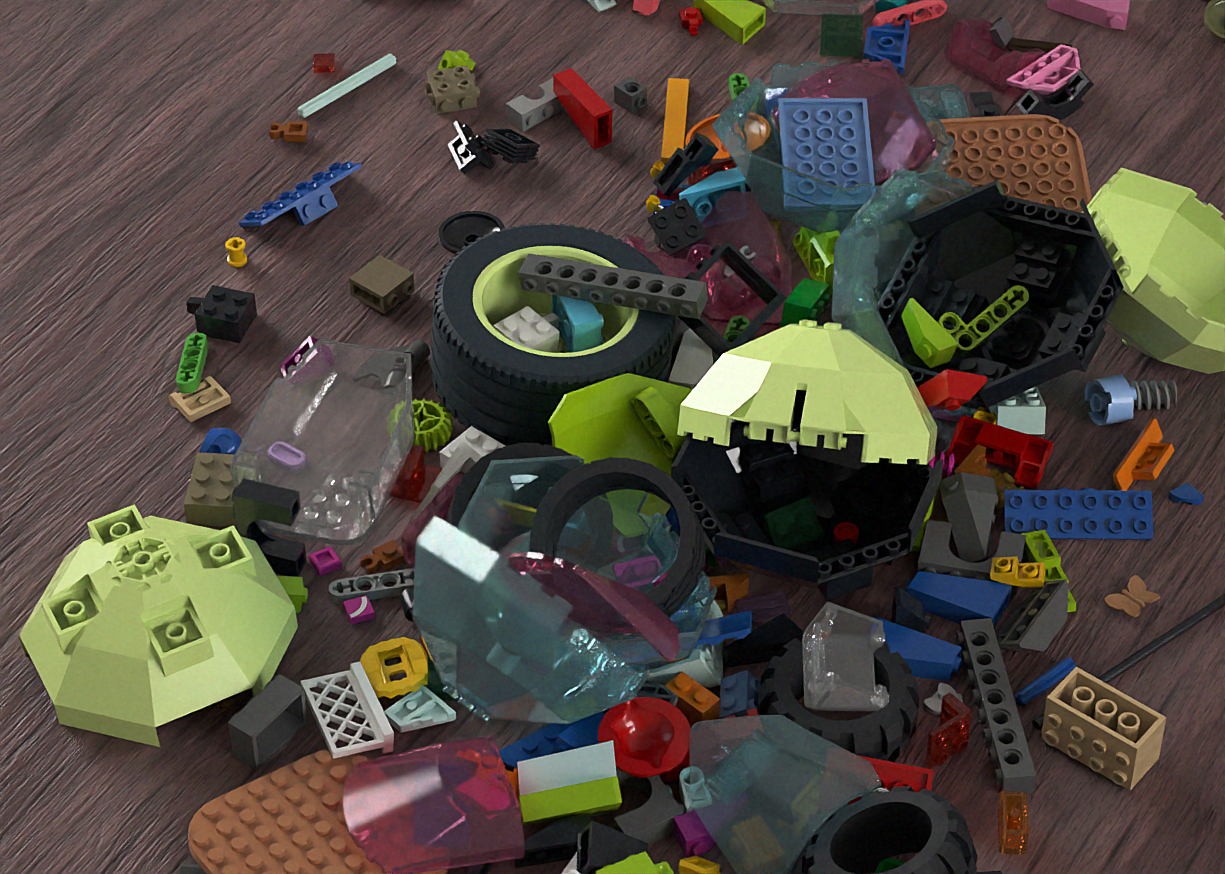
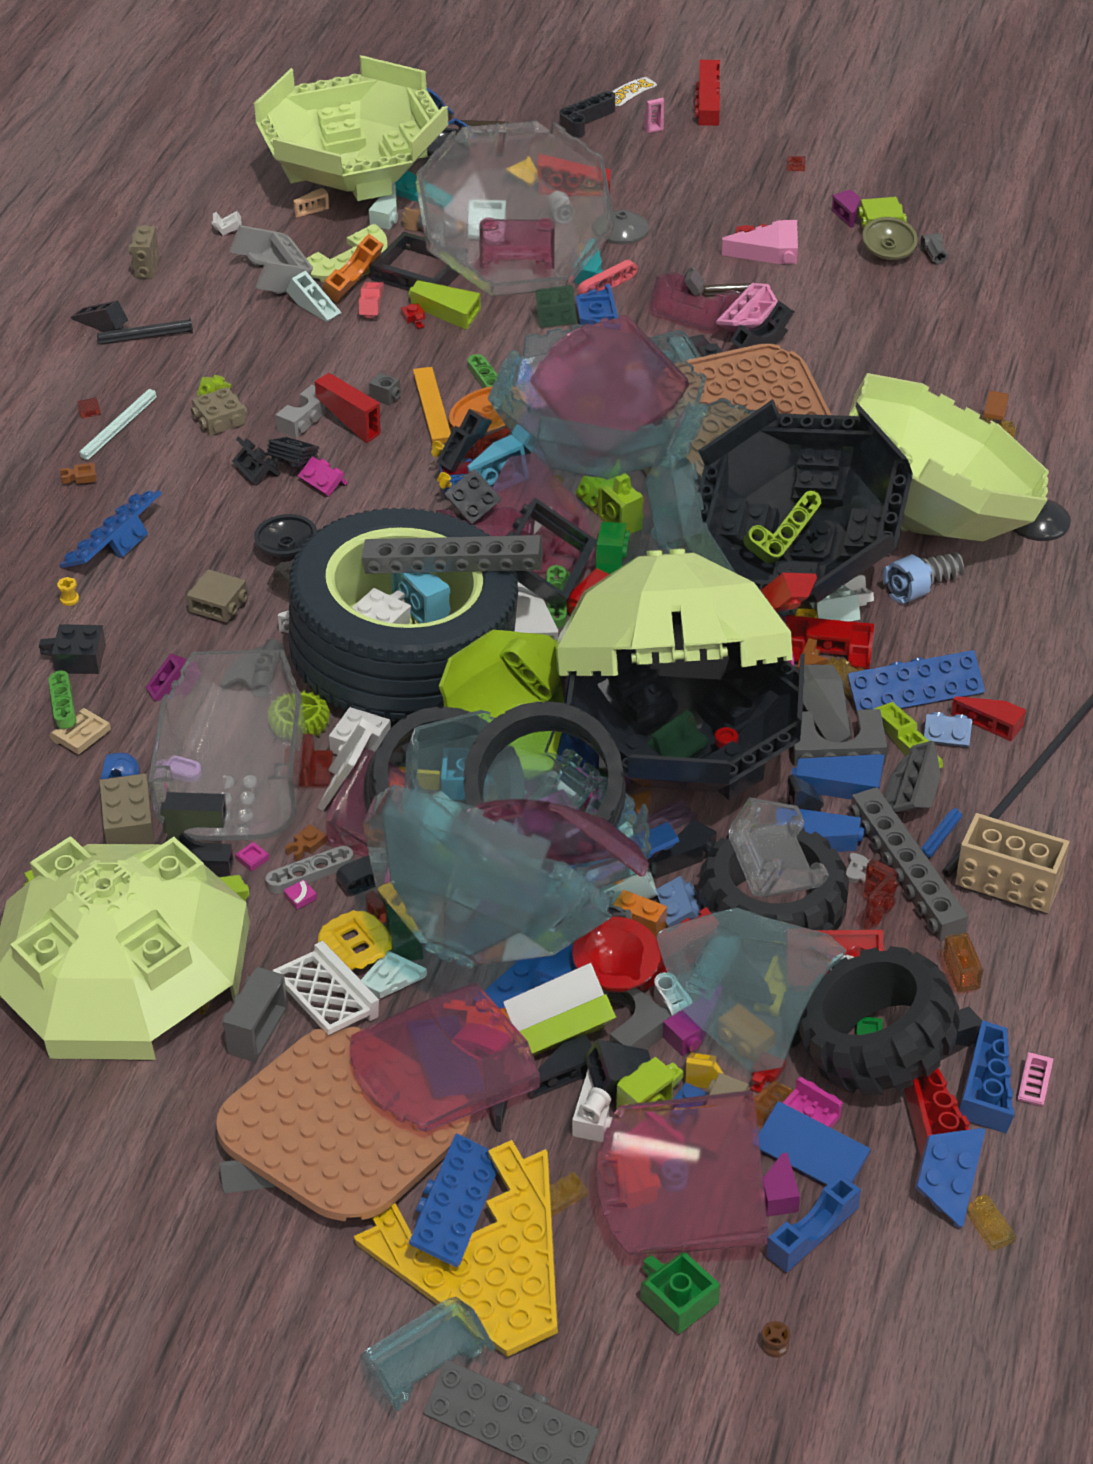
camera: 15 degrees left, 0 degrees up
(532, 177) = (321, 476): none -> dark pink bracket
(827, 139) = (589, 392): medium blue plate -> none
(927, 336) = (742, 549): lime slope -> none
(1011, 572) = (879, 743): yellow slope -> none
(1054, 401) = (858, 585): none -> white bracket
(1094, 572) = (948, 730): none -> medium blue bracket
(1132, 600) = (988, 747): medium nougat piece -> none
(1144, 458) = (954, 625): orange bracket -> none
(1156, 568) = (991, 715): none -> red slope
(1186, 493) = (999, 647): blue tile -> none

